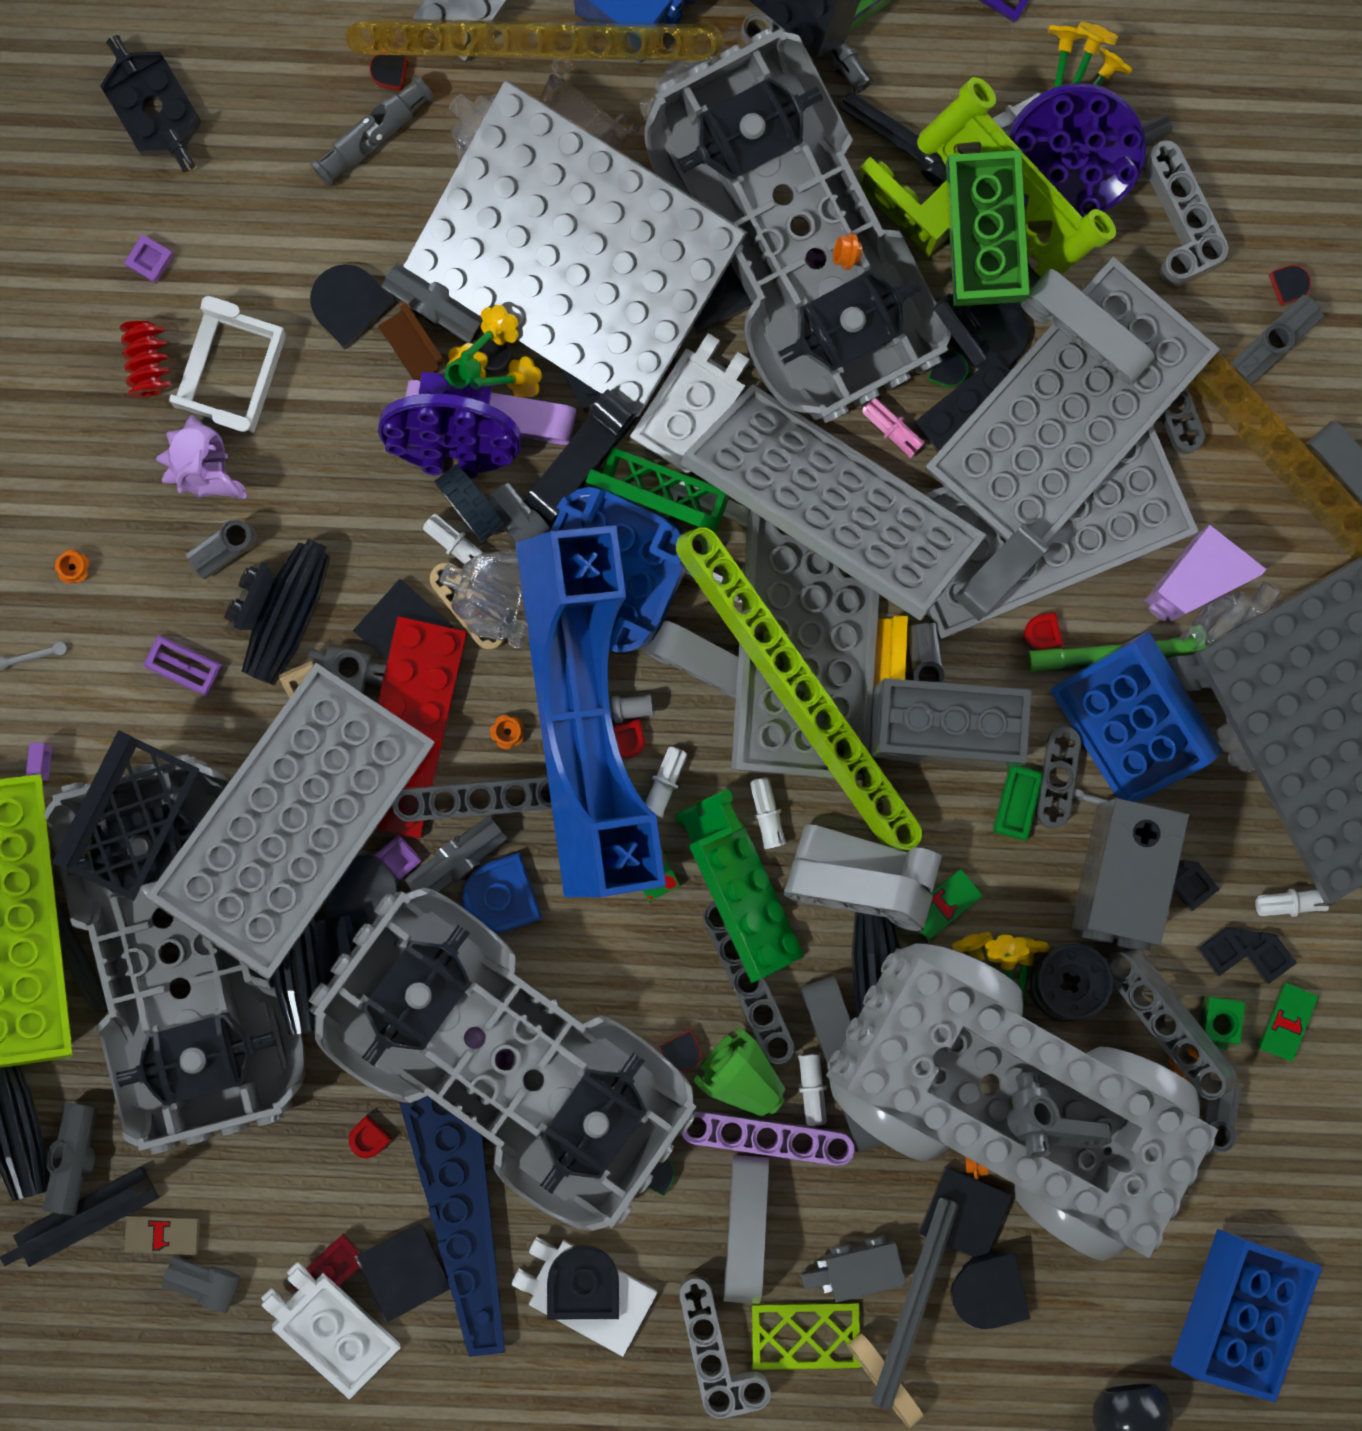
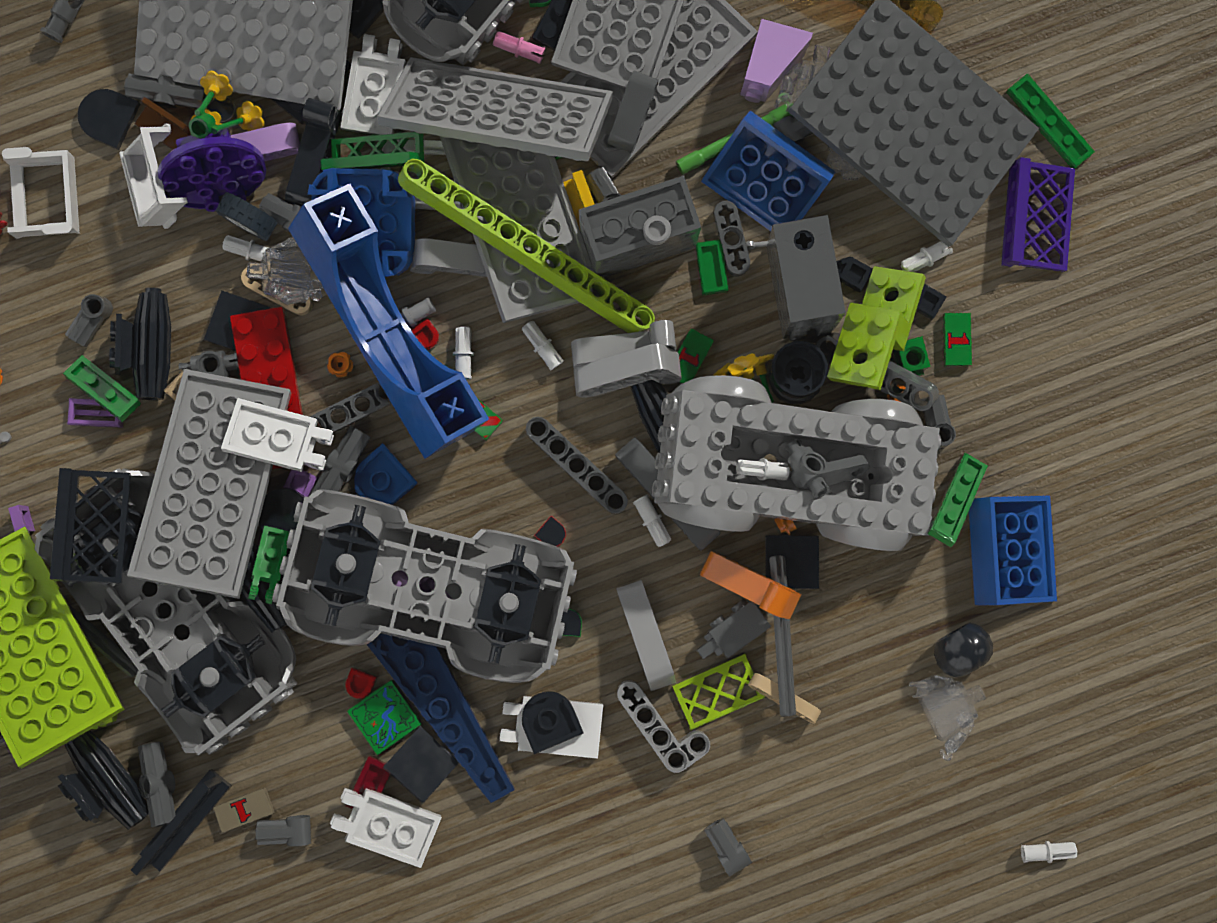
camera: 20 degrees left, 0 degrees up
(198, 462) = (47, 267): lavender head -> none
(204, 640) = (102, 388): none -> green plate
(323, 948) = (268, 561): none -> green hinge
(356, 407) = (145, 188): none -> white piece
(381, 1193) = (384, 717): none -> tile
(393, 795) = (275, 436): none -> white tile
(740, 886) = (543, 401): green hinge -> none
(741, 1075) = (599, 530): bright green cone -> none
(784, 1136) = (645, 559): lavender beam -> none
(918, 1243) = (751, 585): none -> orange beam
(970, 744) = (657, 230): none -> light grey tile
(977, 1093) = (763, 469): none -> white axle
(990, 1291) = (831, 607): black tile -> none
(1043, 632) = (680, 144): red tile -> none
(1192, 969) = (876, 327): none -> lime bracket
(1203, 1226) = (957, 500): none -> green tile

